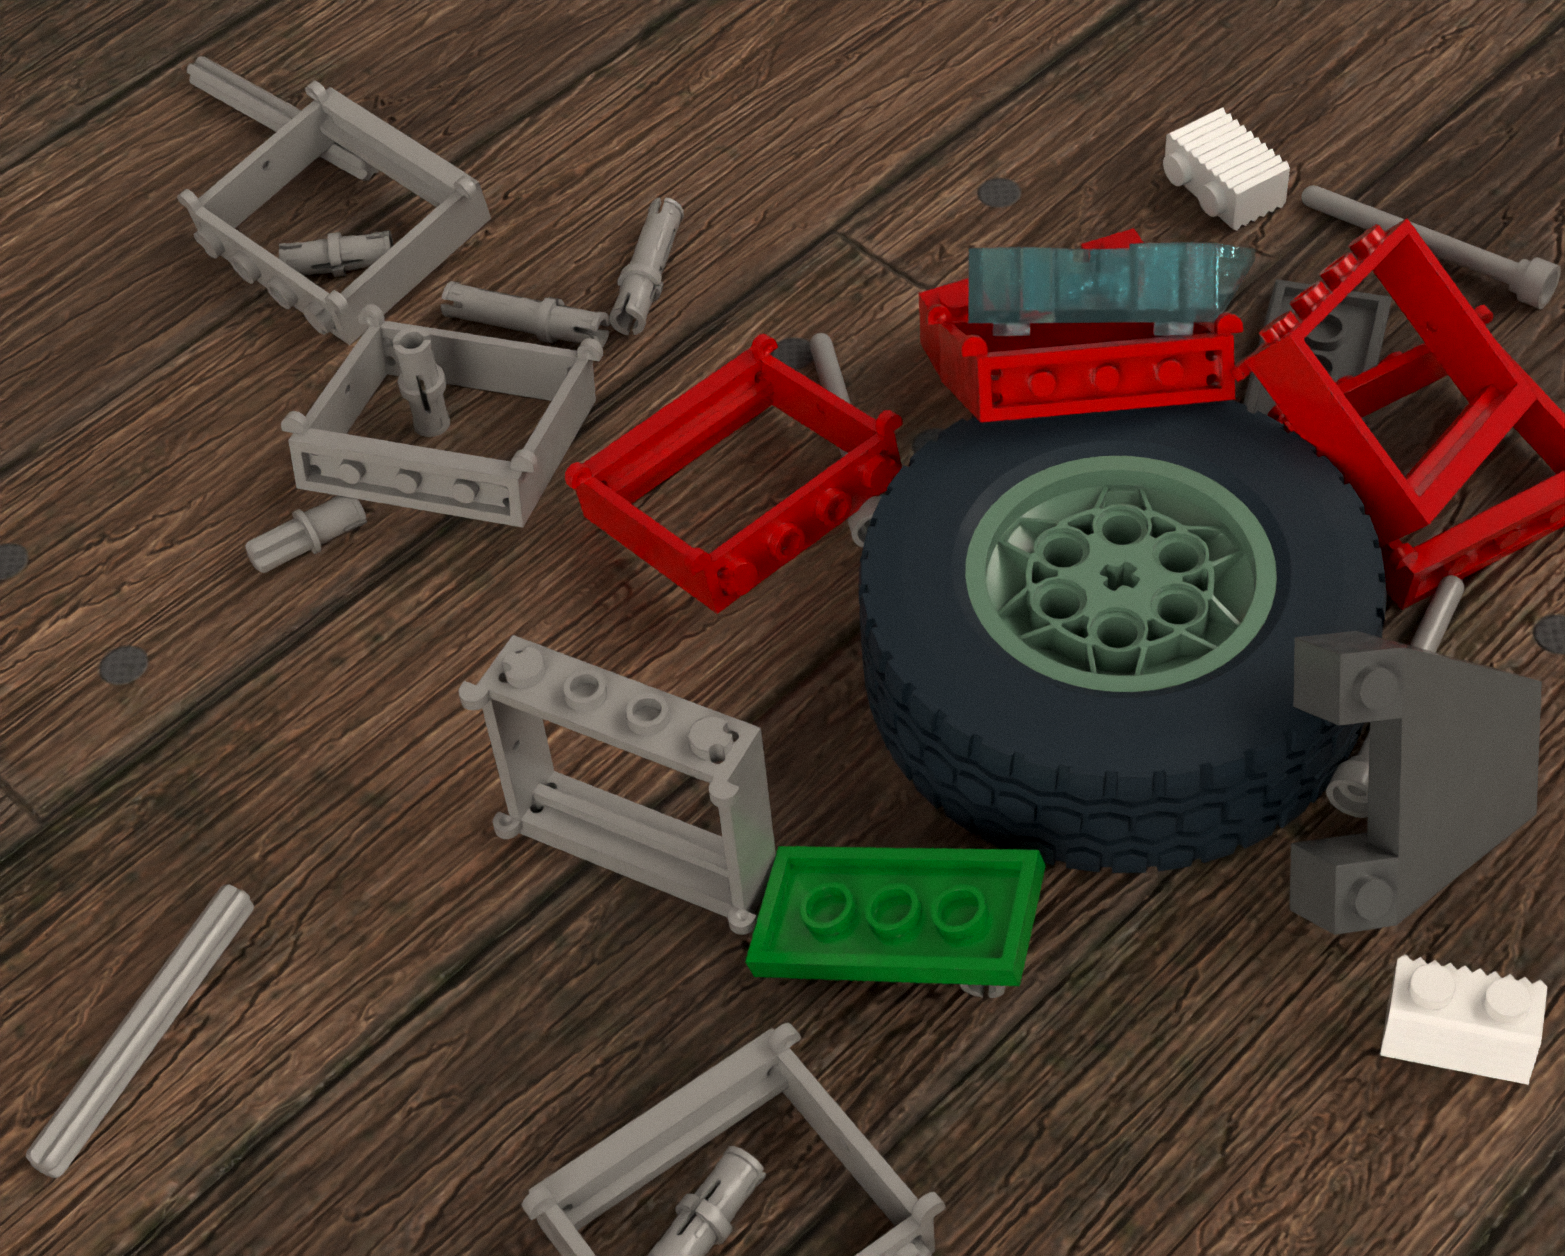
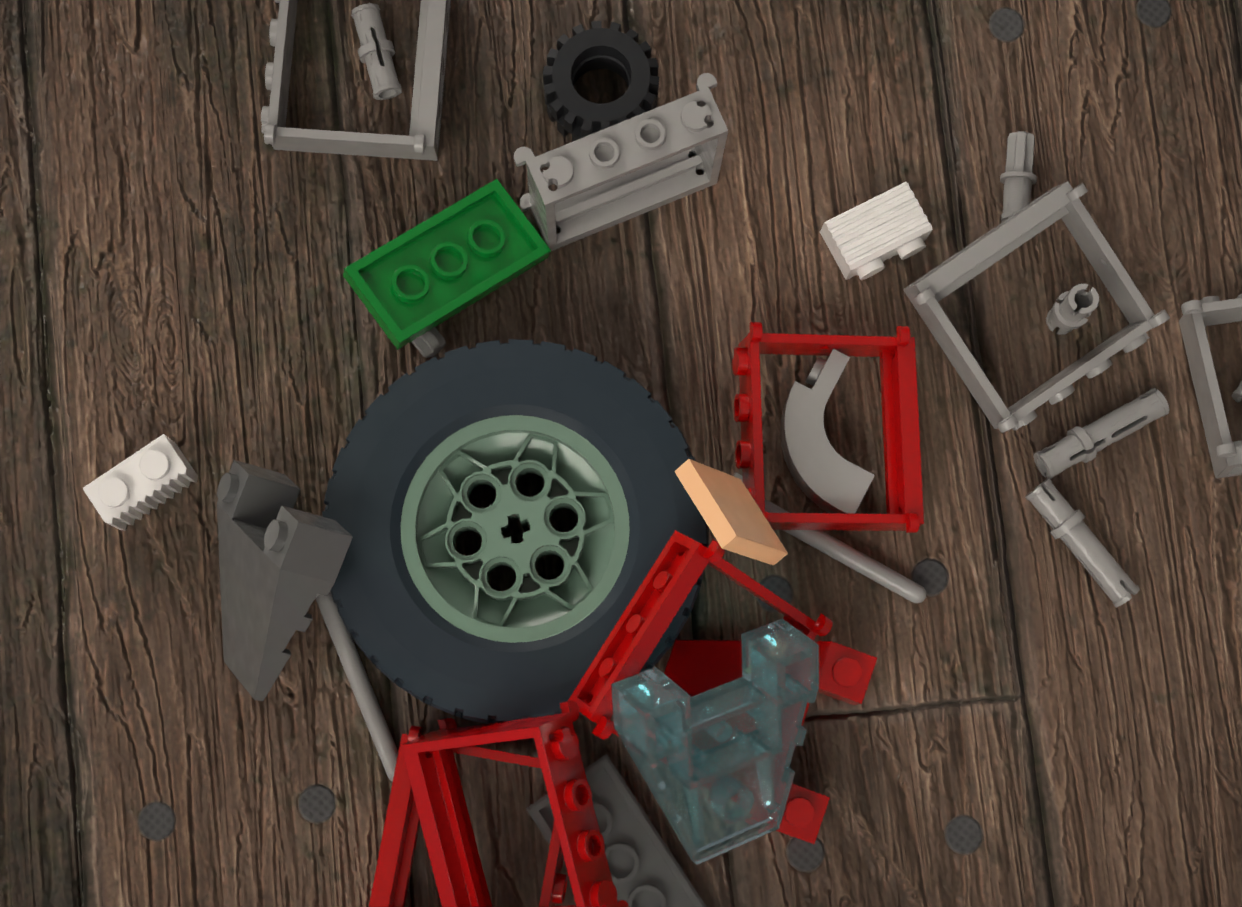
camera: 120 degrees right, 30 degrees up
(475, 592) = (877, 232): none -> white brick
(526, 891) = (598, 50): none -> black tyre
(776, 468) = (810, 458): none -> light grey arch
(914, 403) = (731, 512): none -> light nougat tile

